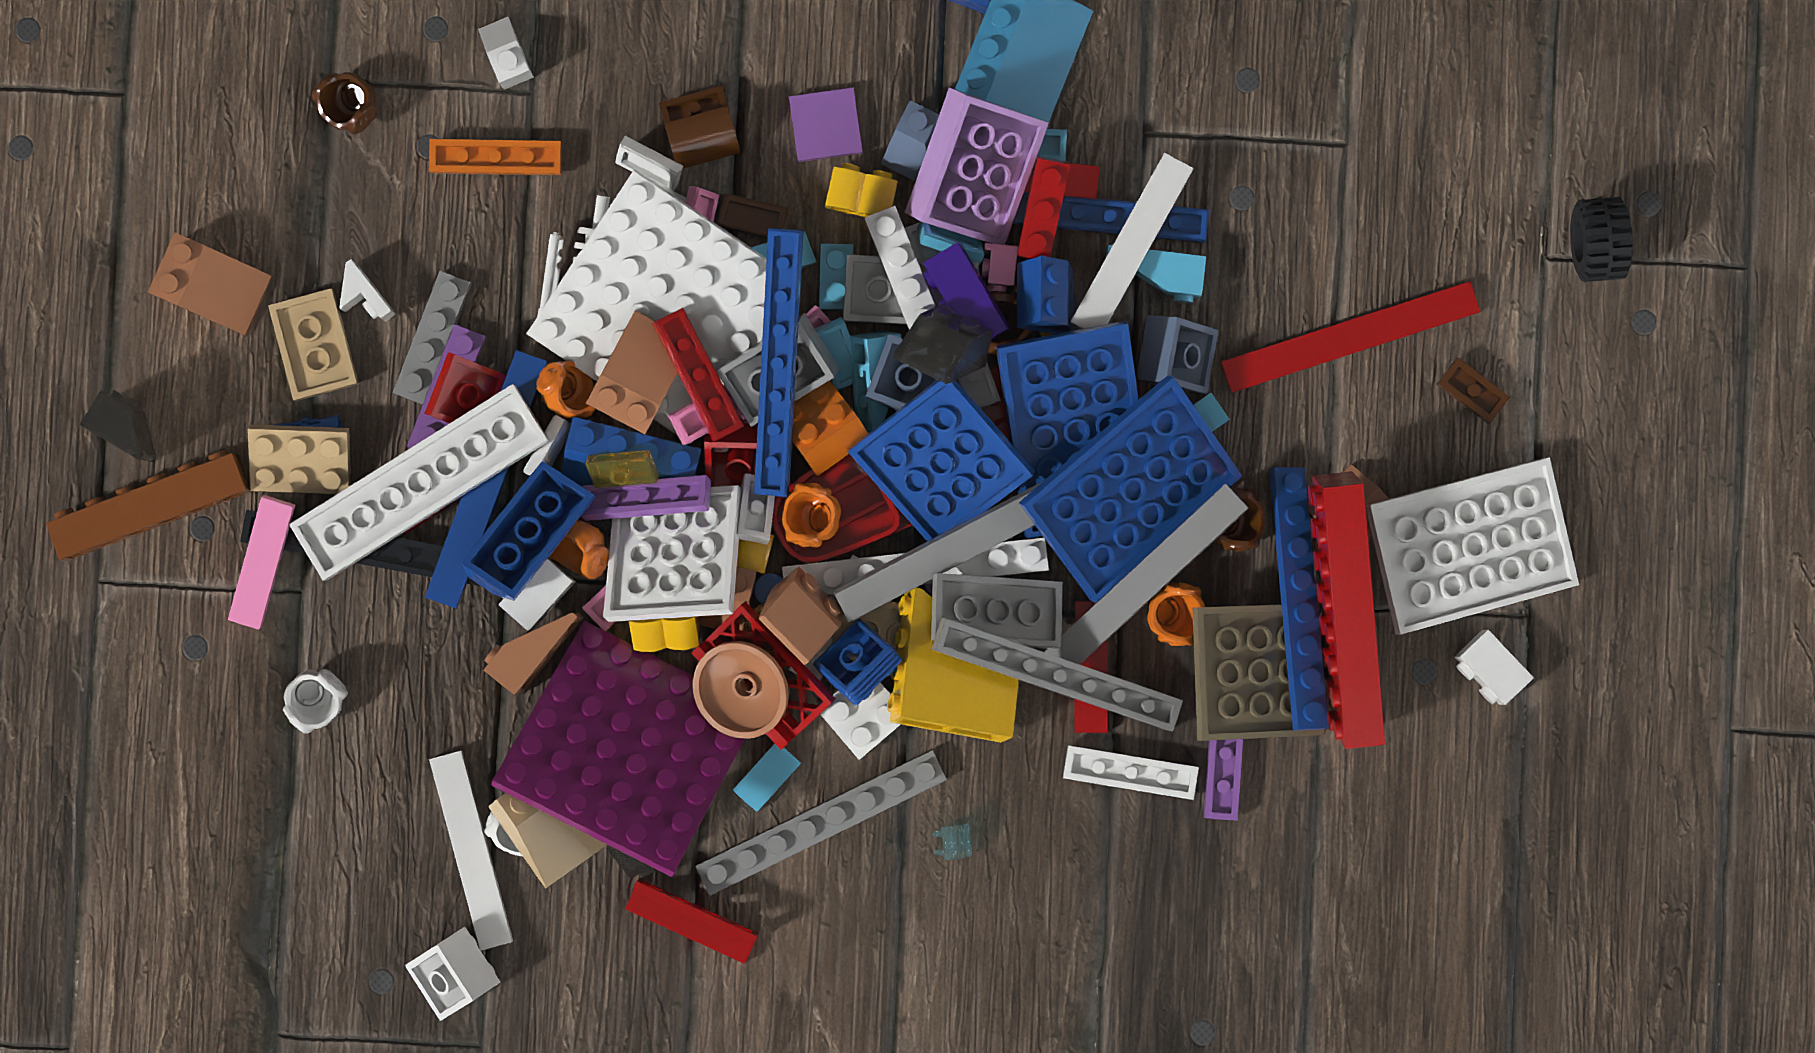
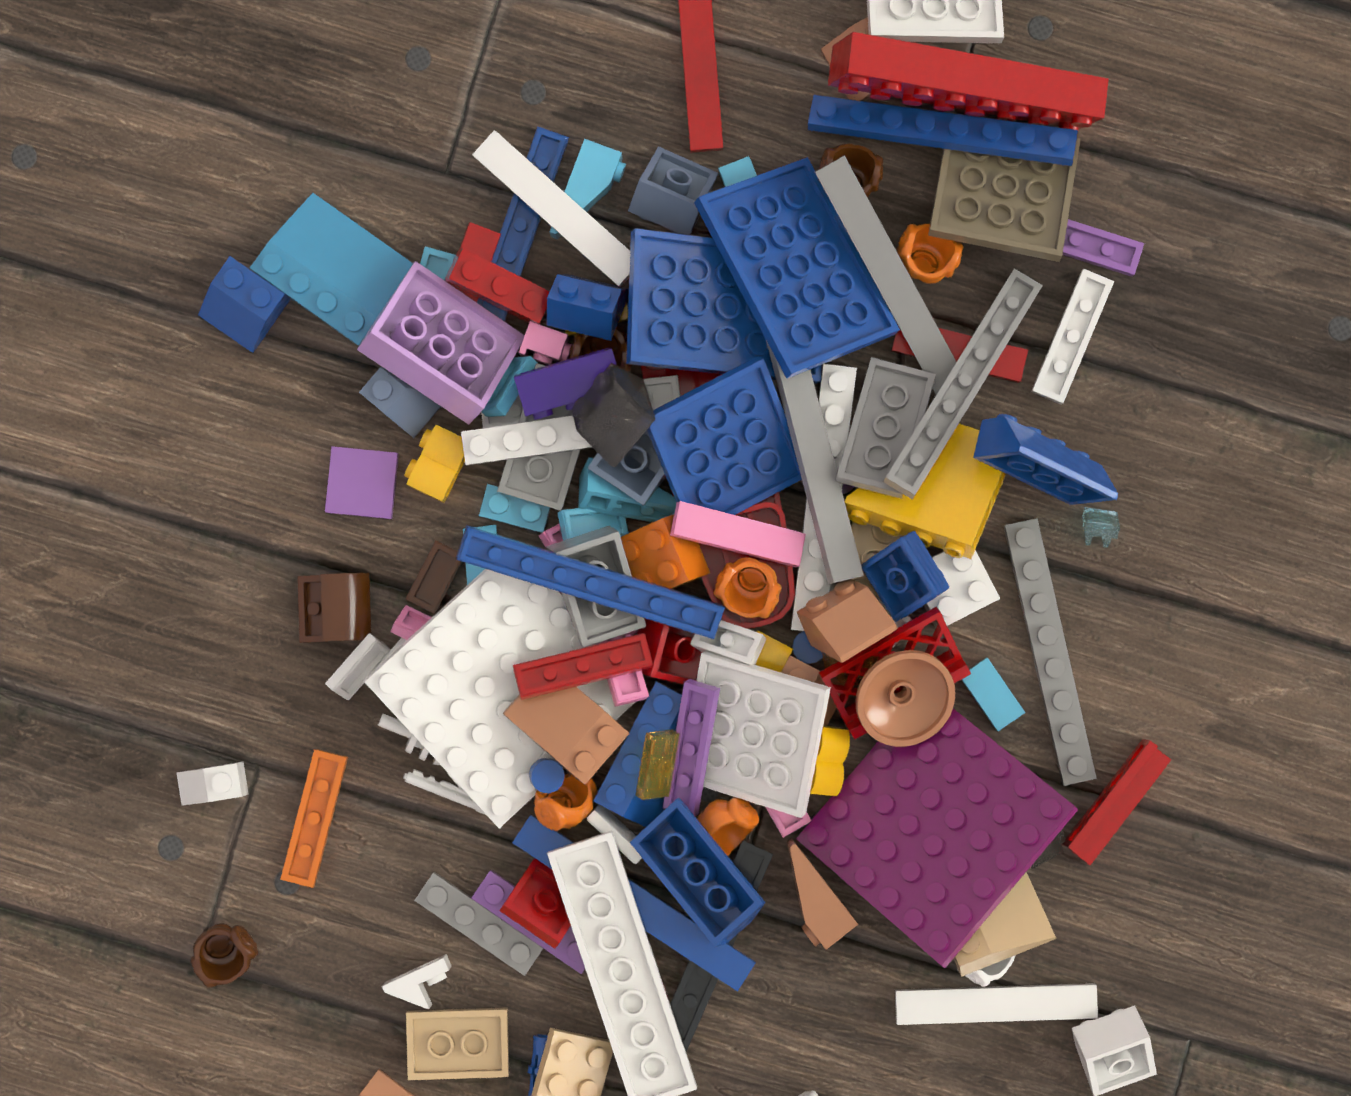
camera: 75 degrees left, 0 degrees up
(539, 595) = (764, 877): white brick -> none
(586, 366) = (546, 775): none -> blue tile
(859, 492) = (737, 534): none -> bright pink tile
(999, 768) = (1042, 462): none -> blue slope

